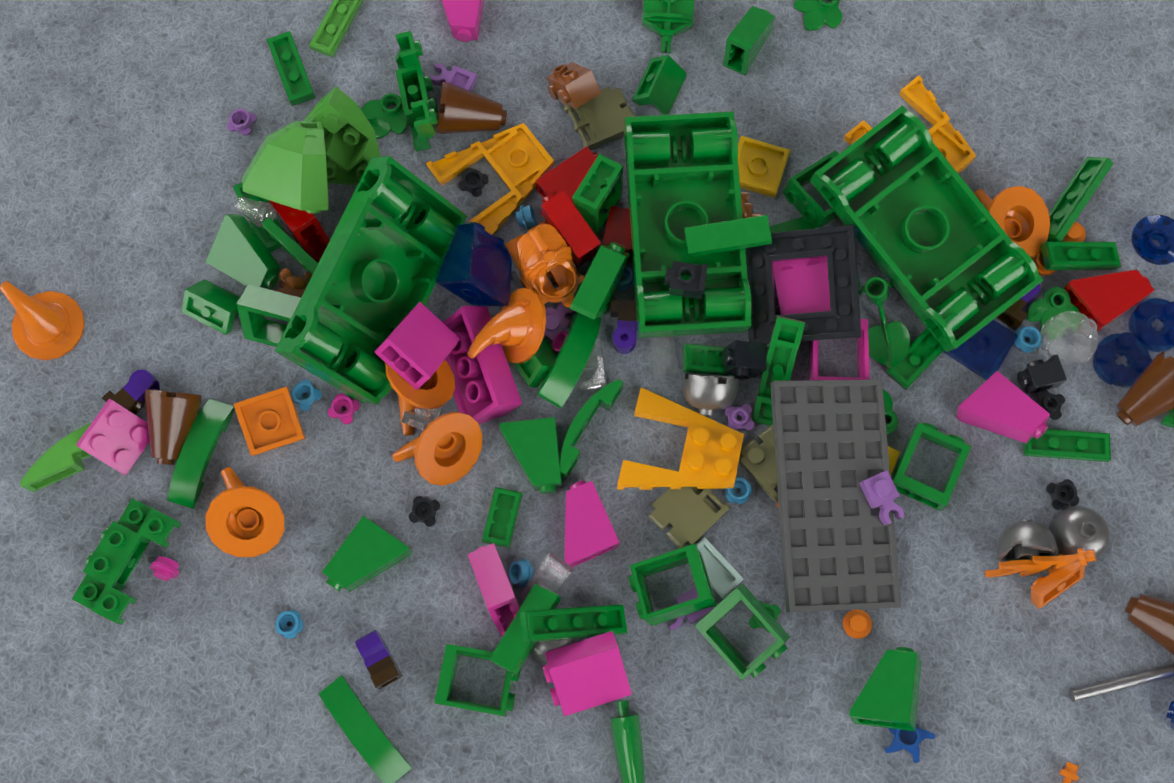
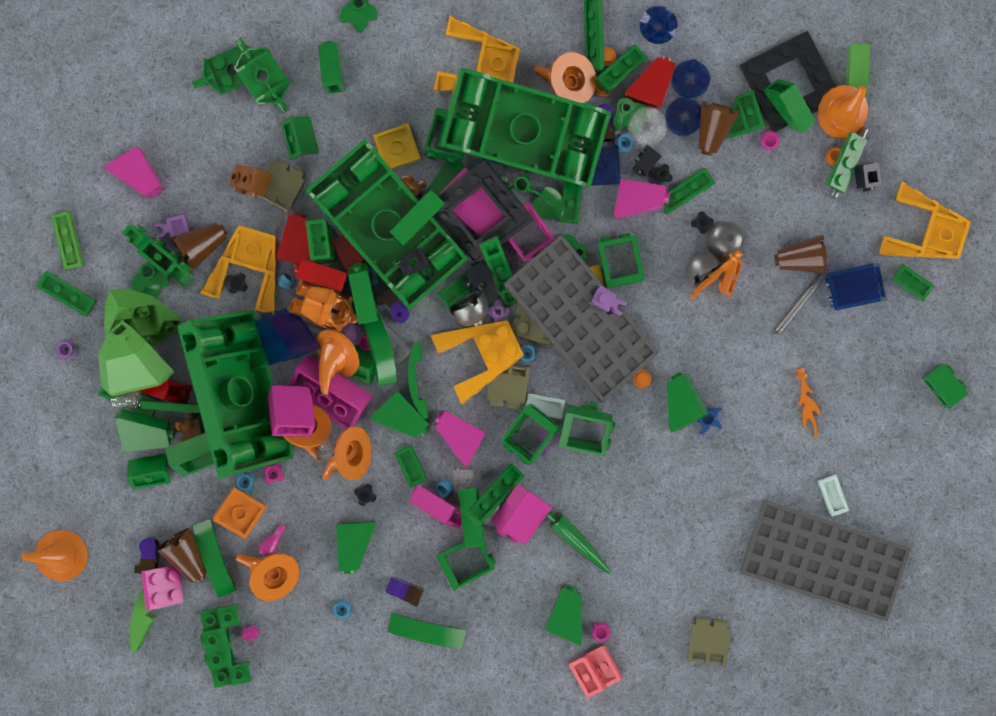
camera: 45 degrees left, 15 degrees up
(278, 482) = (270, 544): none -> dark pink cone

